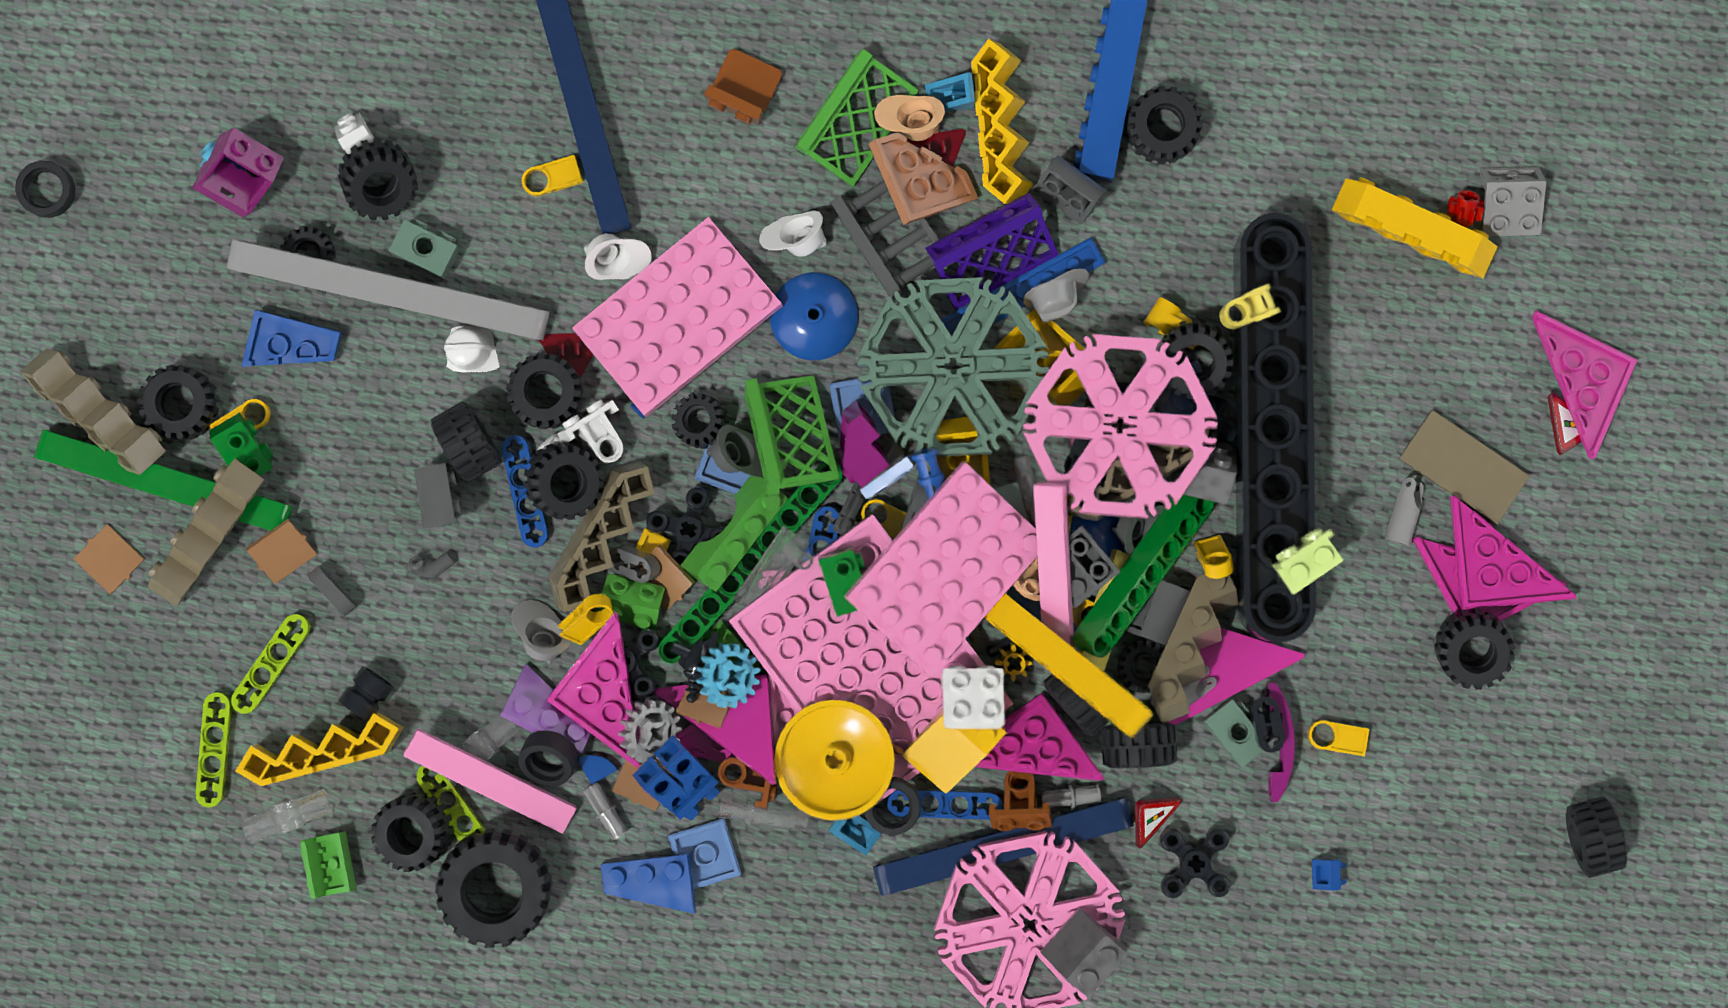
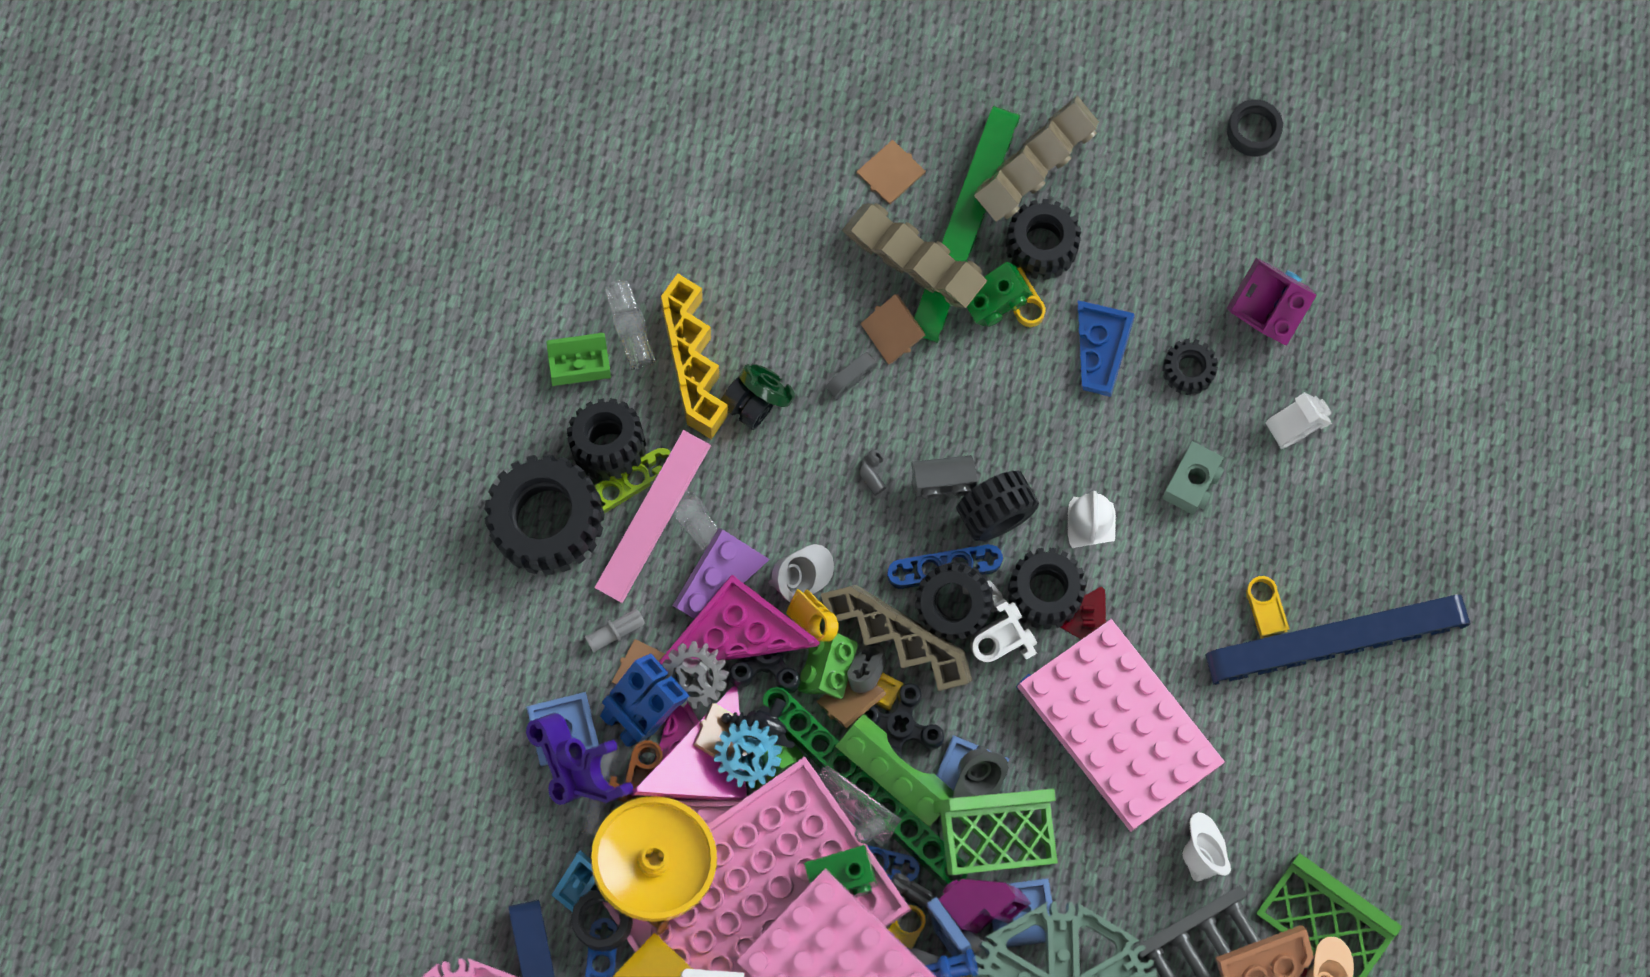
camera: 90 degrees right, 15 degrees down
(209, 749) = (700, 254): lime beam -> none
(273, 665) = (784, 312): lime beam -> none
(349, 675) = (766, 385): none -> dark green tile
(371, 159) = (1243, 432): black tyre -> none
(387, 289) = (1152, 441): light grey beam -> none
(552, 743) = (684, 581): black tyre -> none
(596, 767) = (659, 624): blue tile -> none
(615, 257) = (1183, 664): white piece -> none
(652, 880) = (540, 674): blue wing -> none
(685, 413) = (1019, 728): black tyre -> none
(743, 87) = (1360, 803): dark orange bracket -> none
(747, 843) = (573, 767): none -> dark purple piece
(818, 337) = (1115, 887): blue dish -> none

